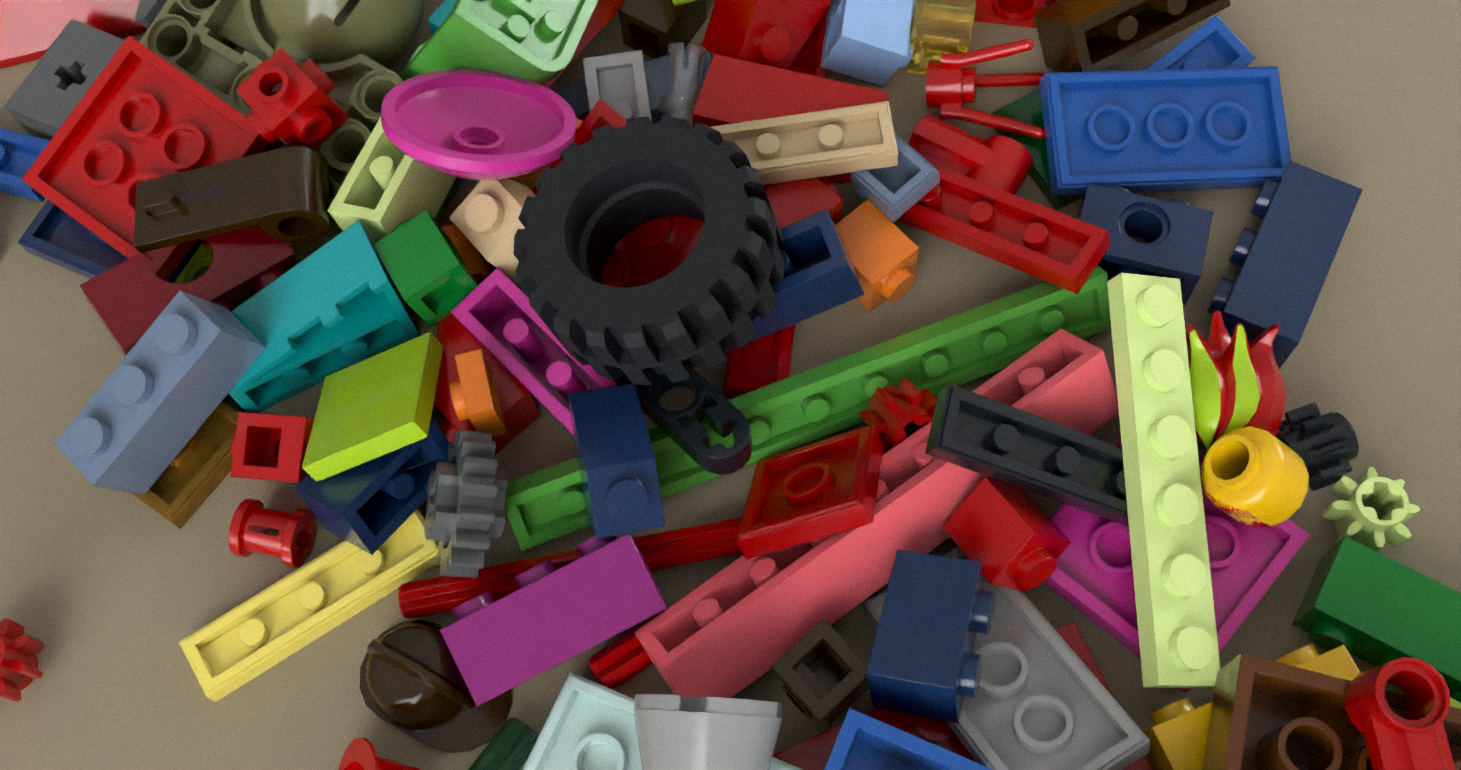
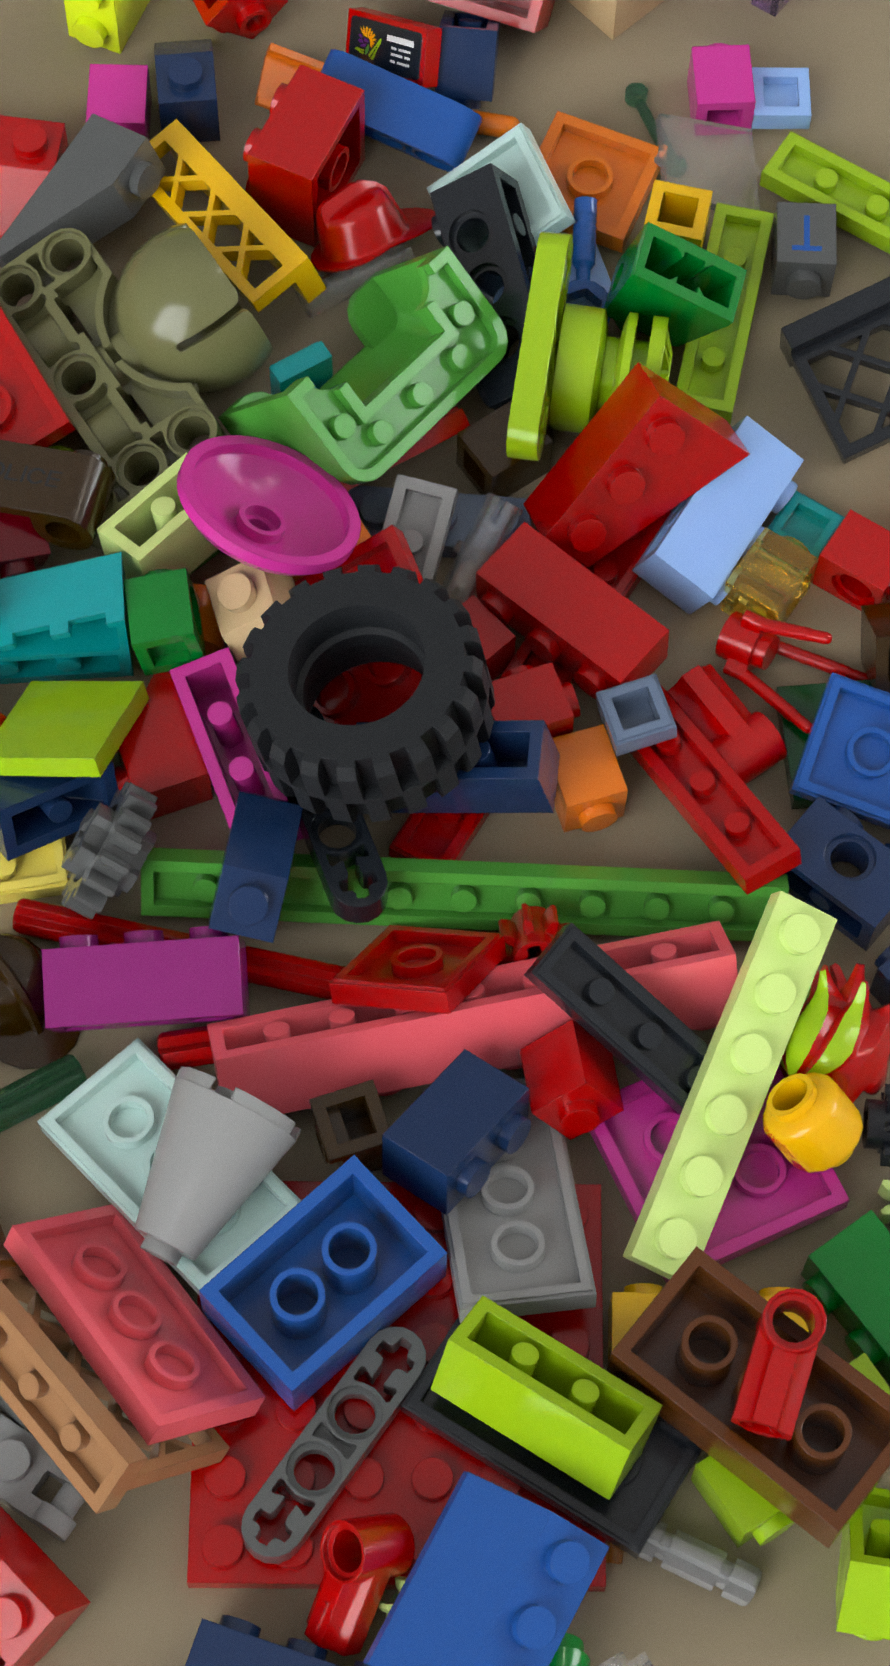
camera: 15 degrees right, 0 degrees up
(291, 101) = (106, 409): red brick -> none
(476, 394) = (160, 757): orange plate -> none
(817, 142) = (563, 649): tan tile -> none

